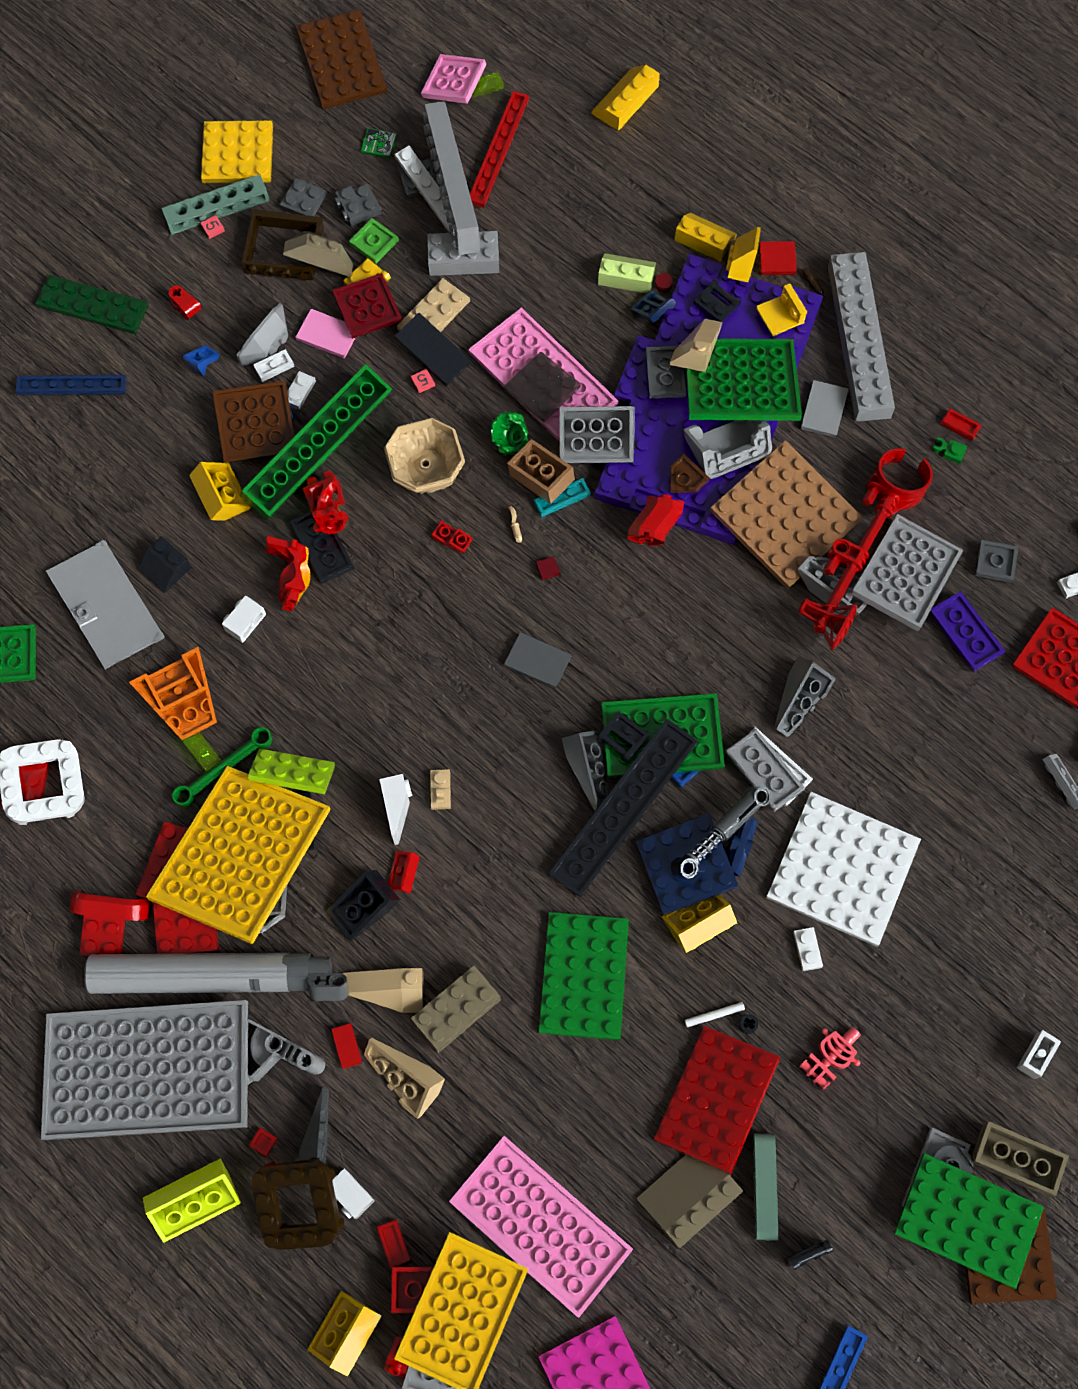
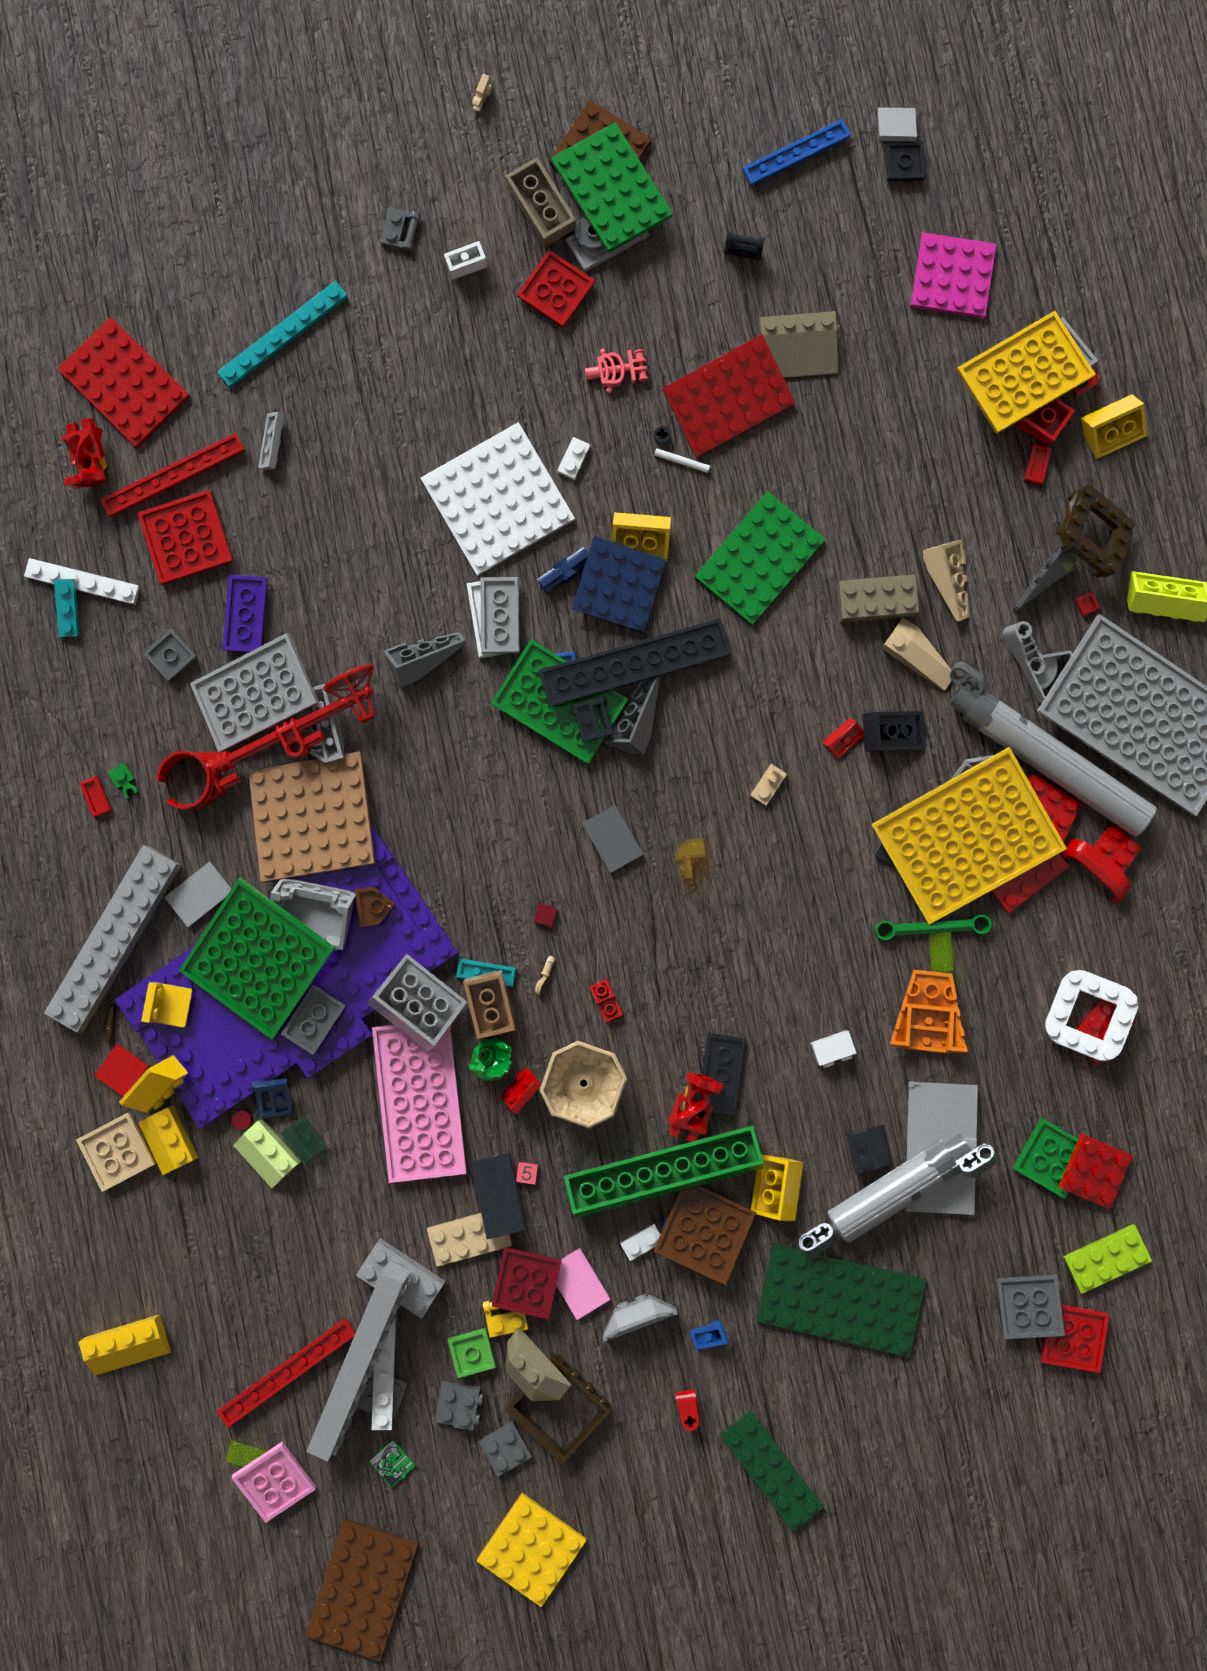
camera: 140 degrees left, 15 degrees up
(71, 385) = (842, 1393): dark blue plate -> none
(114, 448) = (841, 1300): none -> dark green plate
(118, 545) = (898, 1190): none -> piece
(212, 227) = (609, 1478): coral tile -> none
(216, 202) = (602, 1495): sand green brick -> none
(273, 365) = (649, 1283): white plate -> none
(291, 771) = (880, 881): lime plate -> none
(296, 575) = (766, 1052): red hips -> none
(347, 1046) = (978, 631): red tile -> none
(351, 1195) = (1047, 518): white brick -> none
(396, 800) = (812, 797): white slope -> none
(468, 690) = (689, 850): none -> clear yellow brick
(470, 428) = (521, 1090): none -> red plate
(541, 1226) = (921, 401): bright pink plate -> none
(542, 386) = (428, 1087): clear smoke plate -> none
(607, 297) = (304, 1139): none -> clear green plate
(655, 520) = (428, 884): red brick -> none
(697, 347) = (271, 1019): tan wedge -> none
(713, 306) = (221, 1057): black plate -> none
(722, 830) = (529, 593): piece -> none
(736, 204) = (115, 1151): none -> tan plate
(765, 1186) = (738, 314): sand green beam -> none
(942, 1090) = (555, 288): none -> red plate

